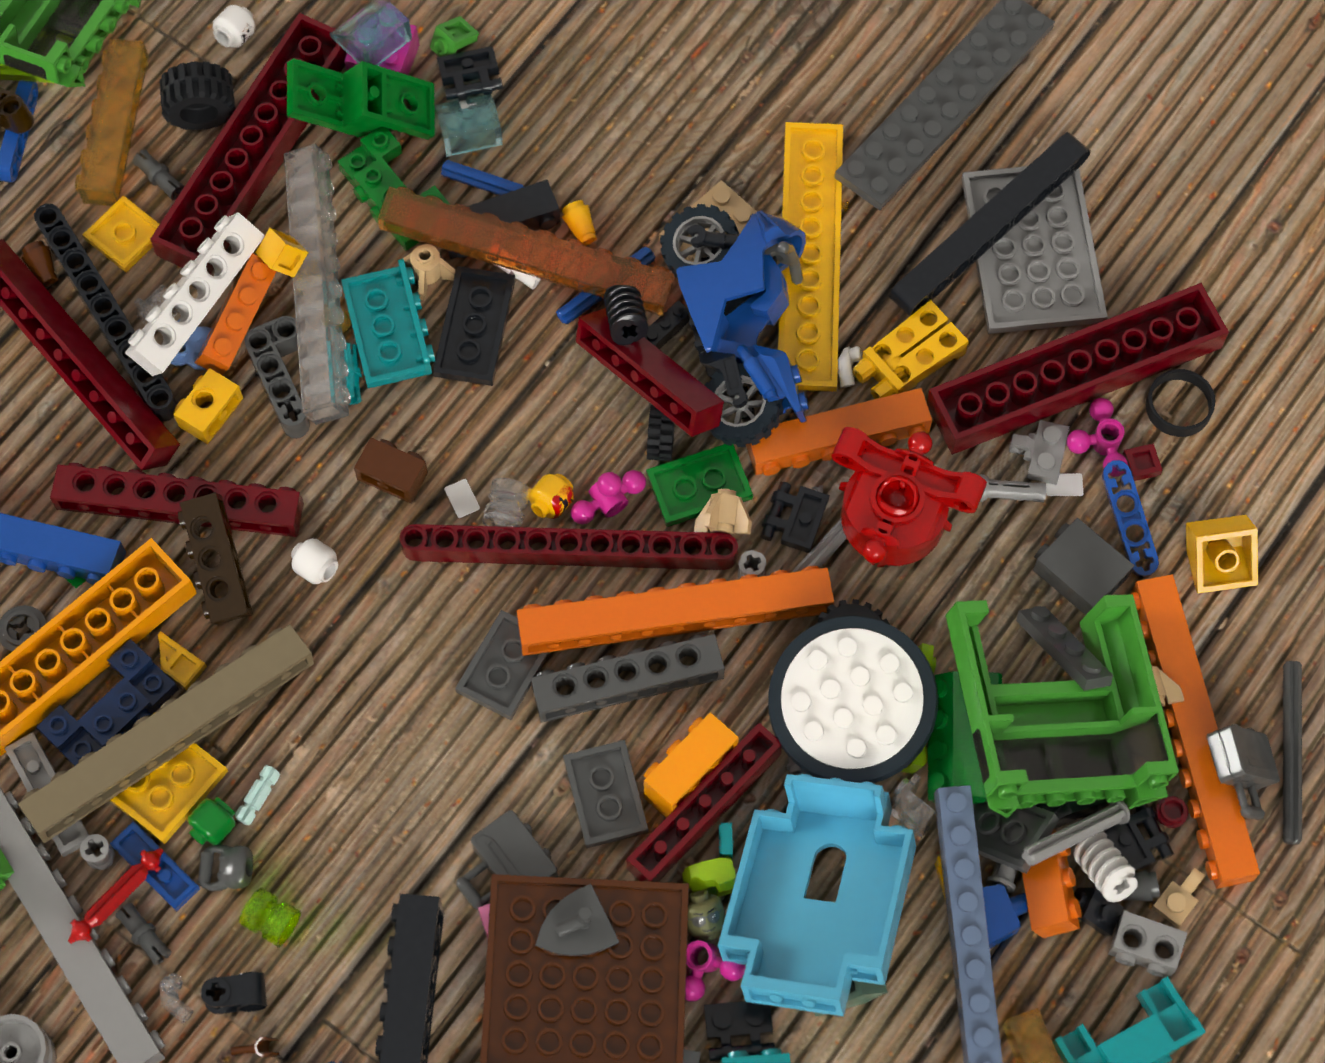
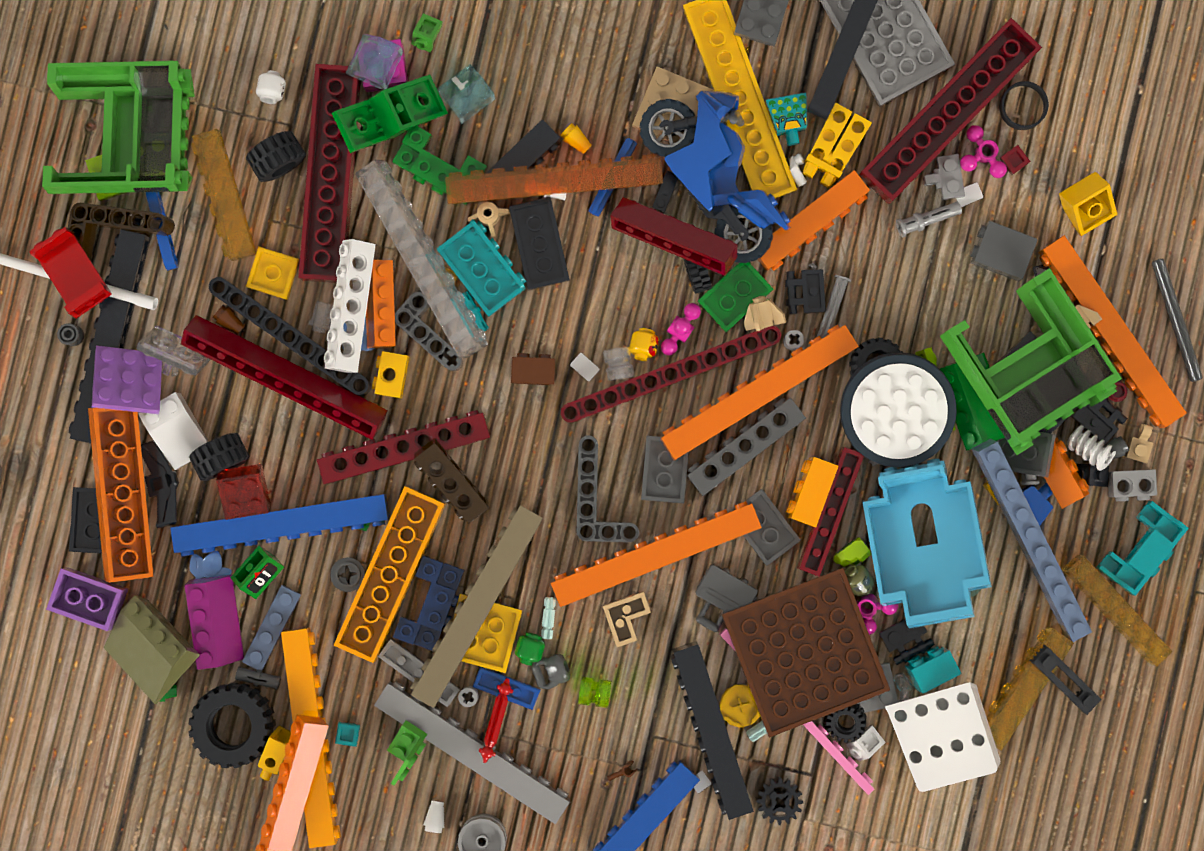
camera: 20 degrees left, 20 degrees up
(143, 933) = (521, 732): dark grey pin -> none
(158, 174) = (274, 220): dark grey pin -> none
(169, 997) = (556, 763): clear arm -> none
(178, 662) = (456, 553): yellow tile -> none
(239, 993) = (599, 743): black piece -> none
(281, 252) = (392, 251): yellow brick -> none
(314, 561) = (512, 453): white head -> none
(356, 824) = (620, 614): none -> tan brick
(390, 662) = (592, 500): none -> dark grey beam
(440, 765) = (656, 554): none -> orange brick
(459, 1026) = (738, 706): none -> yellow tile
(466, 67) = (446, 51): black plate -> none
(478, 178) = (495, 133): blue axle -> none
(577, 926) = (788, 624): dark grey shield -> none
(625, 314) = (642, 203): black piece -> none
(725, 840) = (851, 527): teal tile -> none
(863, 297) = (788, 116): none -> teal torso
(898, 498) = (876, 265): red piece -> none
(910, 809) = (959, 464): clear bracket -> none
(1064, 648) = (1015, 316): dark grey plate -> none
(1071, 835) = (1068, 439): light grey axle -> none
(1134, 517) = (1023, 204): blue beam -> none
(1244, 761) = (1152, 345): dark grey piece -> none

